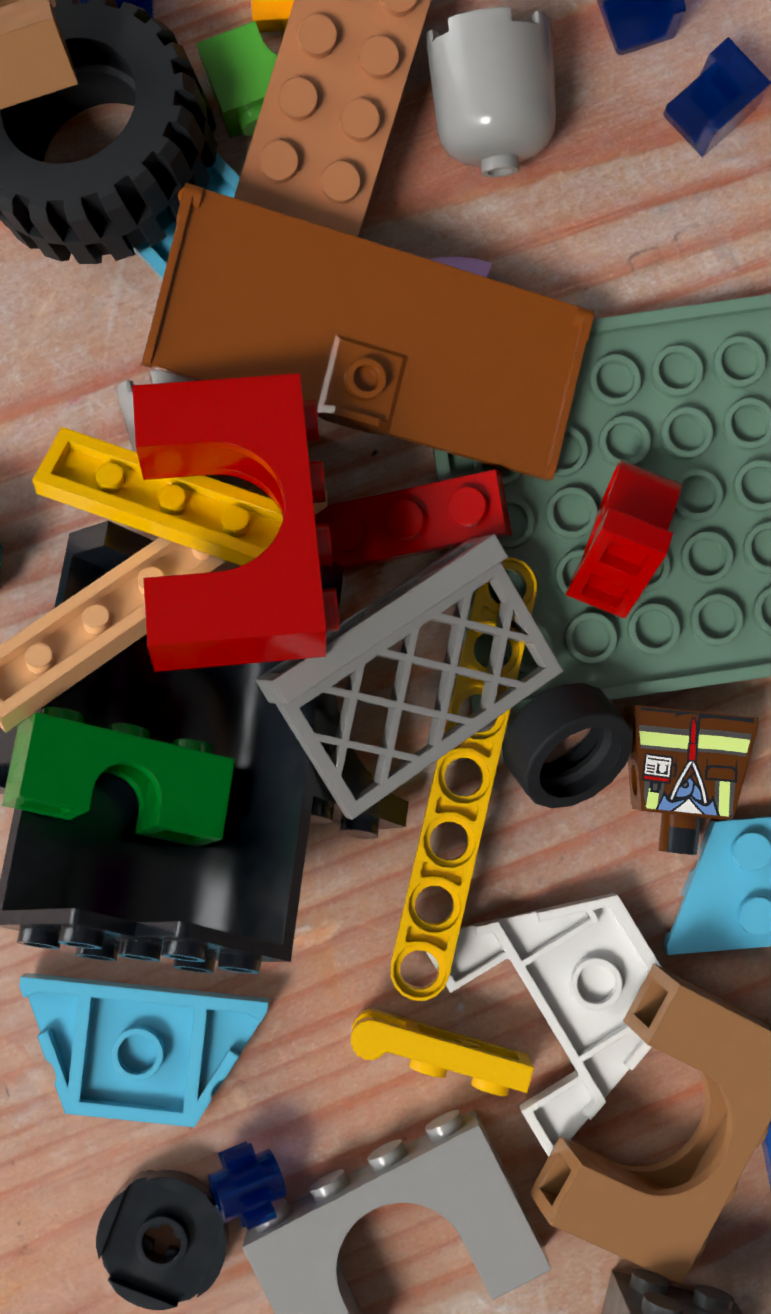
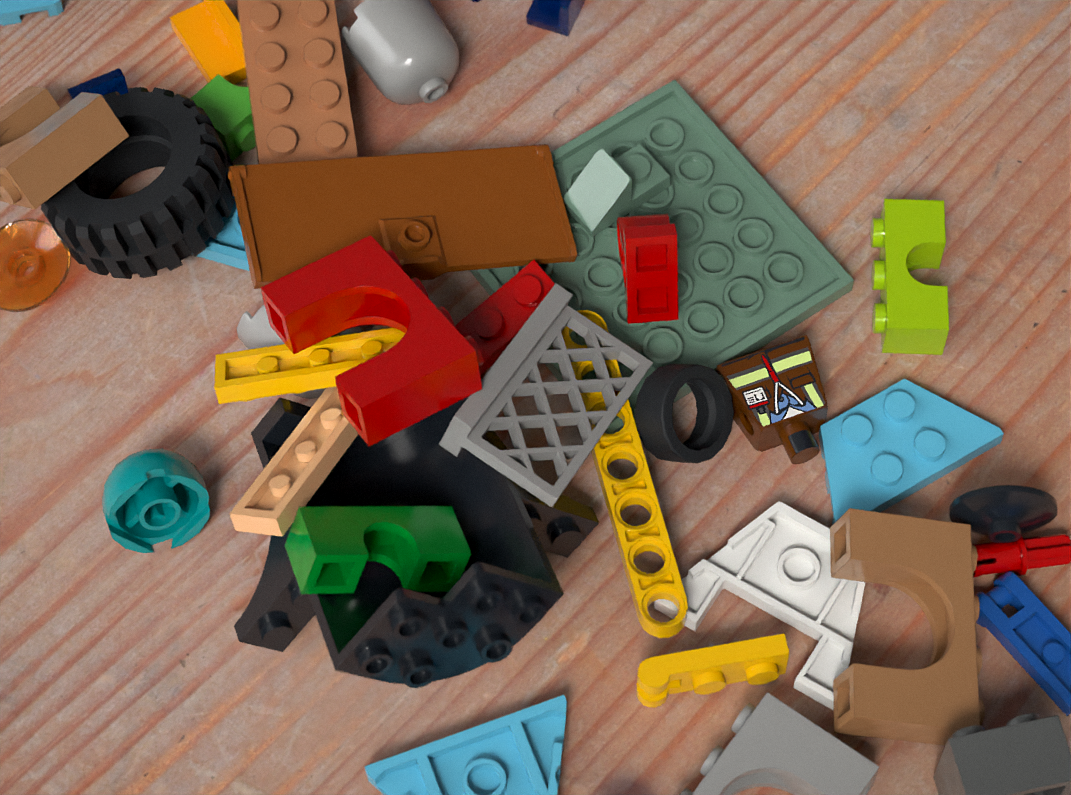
camera: 25 degrees left, 25 degrees down
(643, 410) = (614, 187): none -> sand green slope

